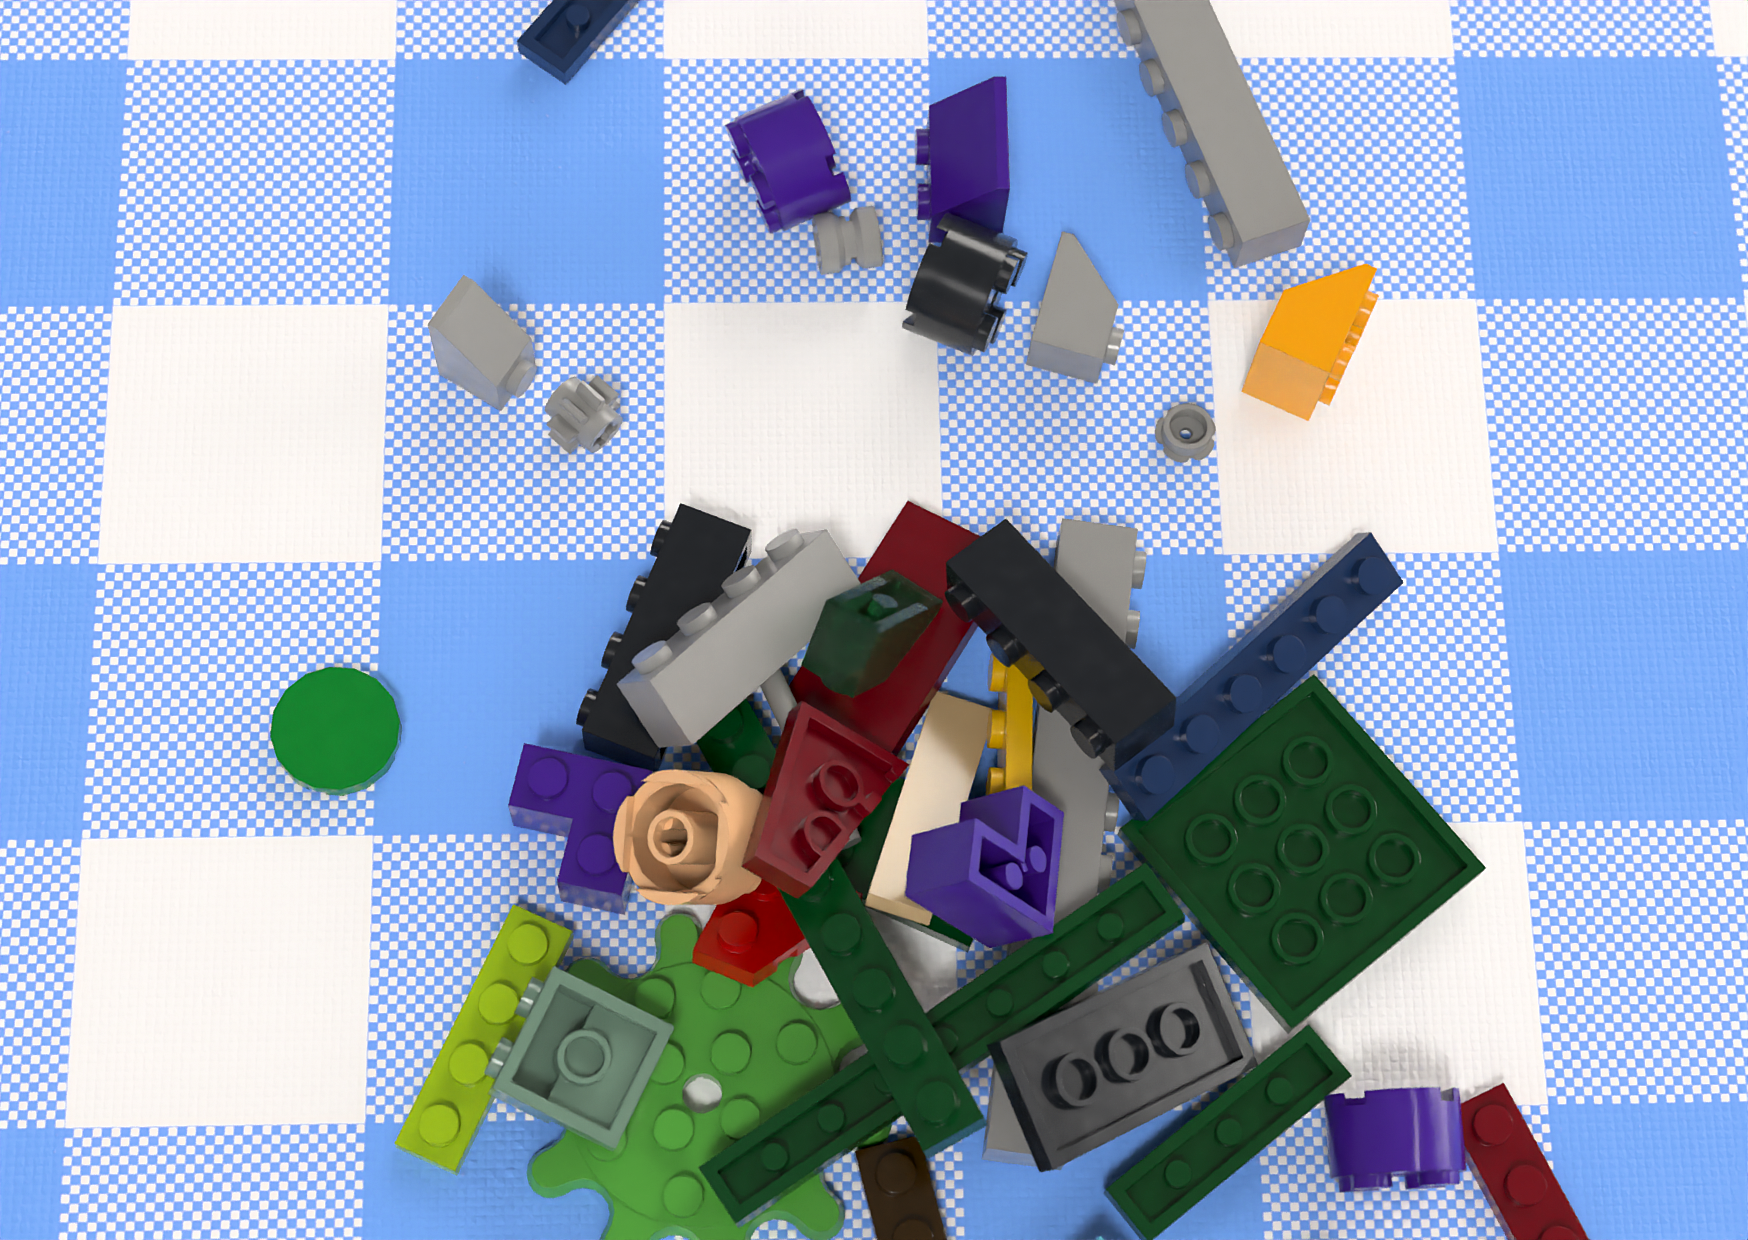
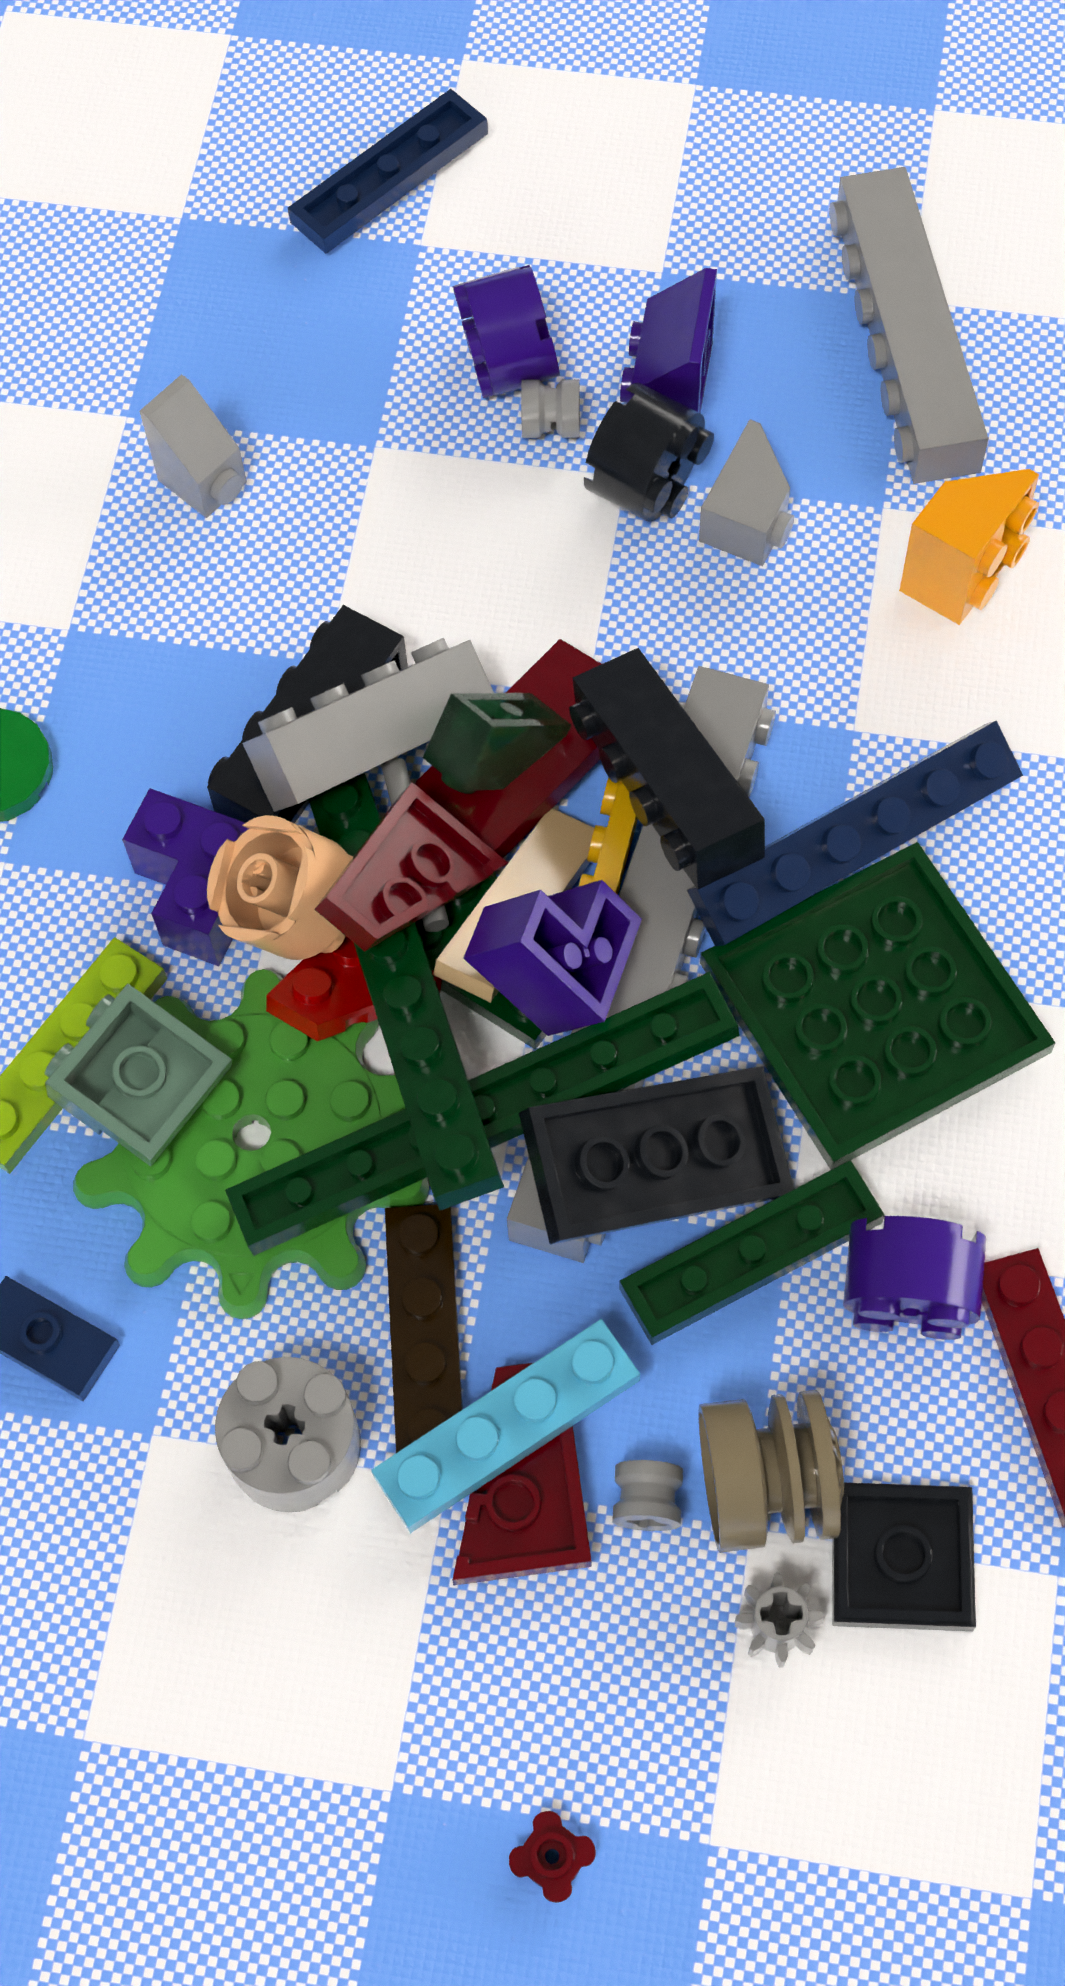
camera: 20 degrees right, 5 degrees down
(583, 414) = (275, 523): light grey gear -> none
(1190, 418) = (841, 603): light grey plate -> none

